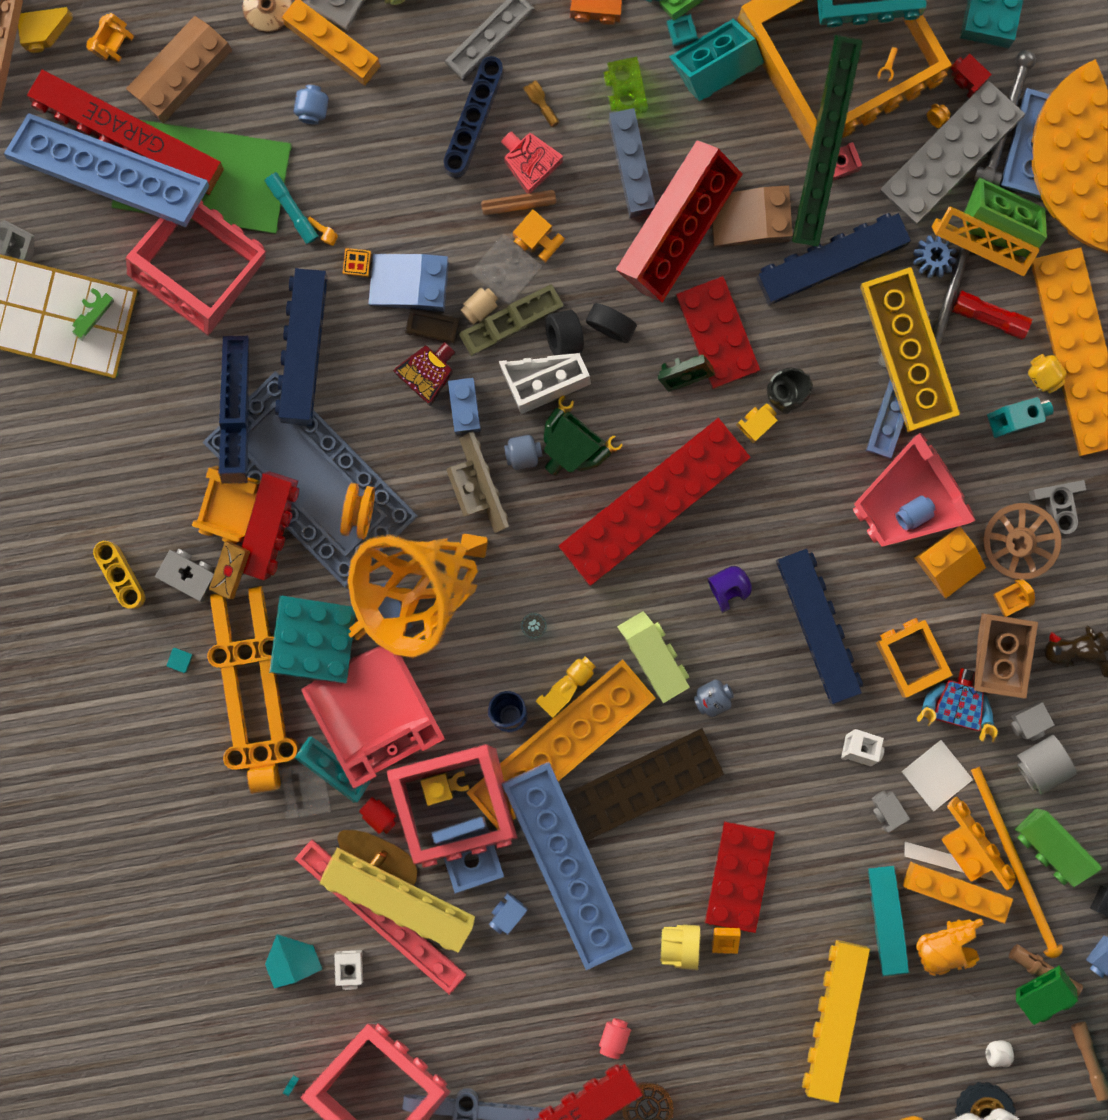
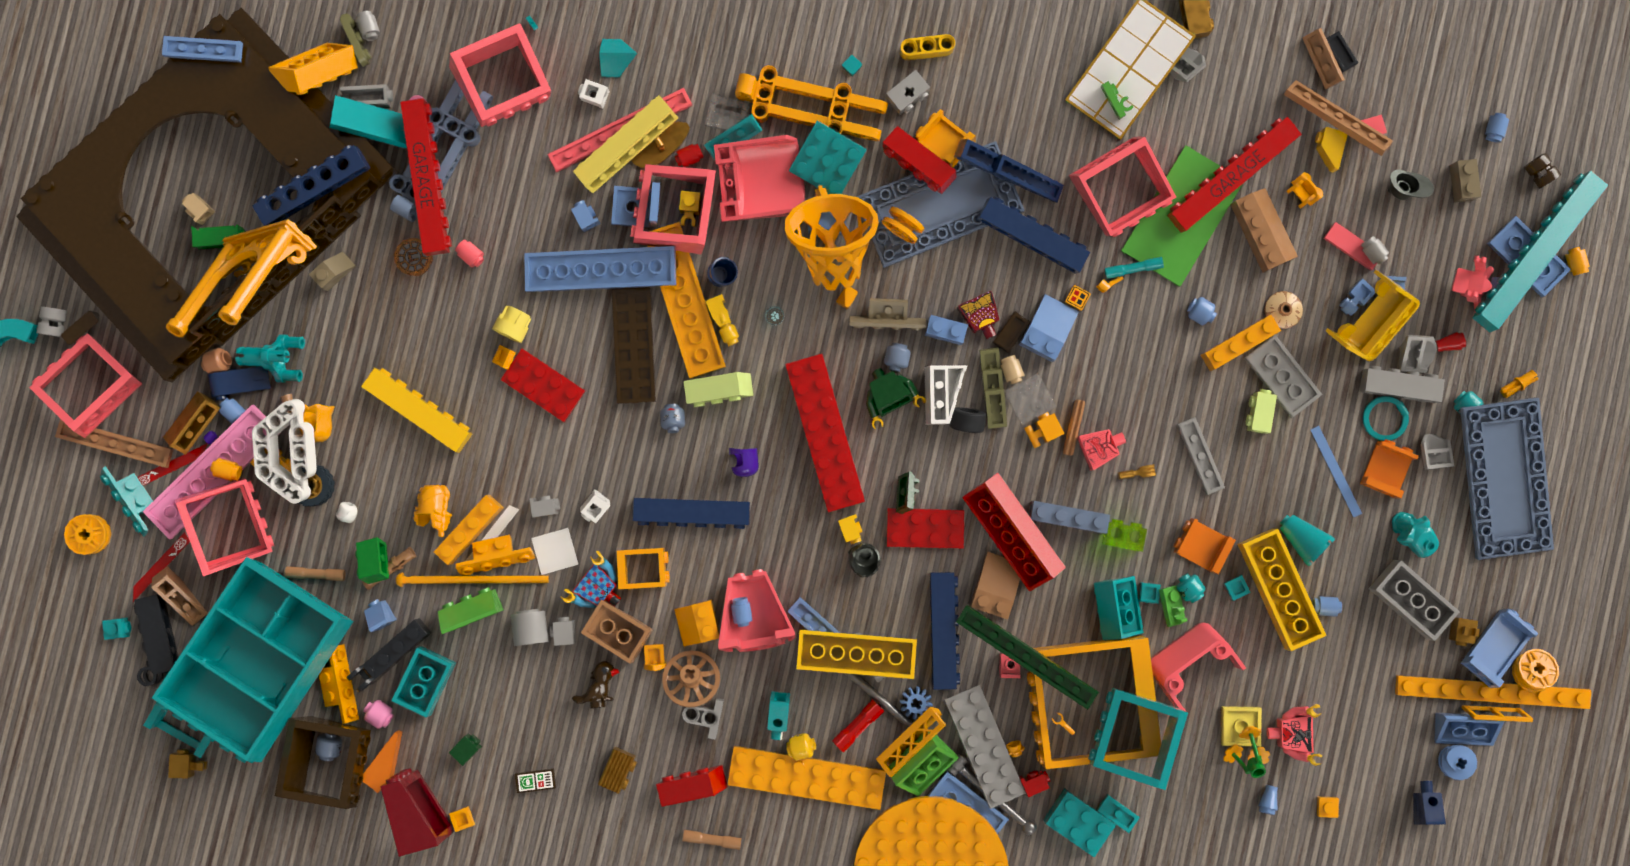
camera: 115 degrees right, 0 degrees up
(107, 170) = (1212, 150): medium blue plate -> none
(229, 570) = (899, 121): pearl gold tile -> none
(473, 105) = (1156, 422): dark blue beam -> none
(611, 323) = (962, 455): black tyre -> none
(888, 921) = (469, 473): teal slope -> none

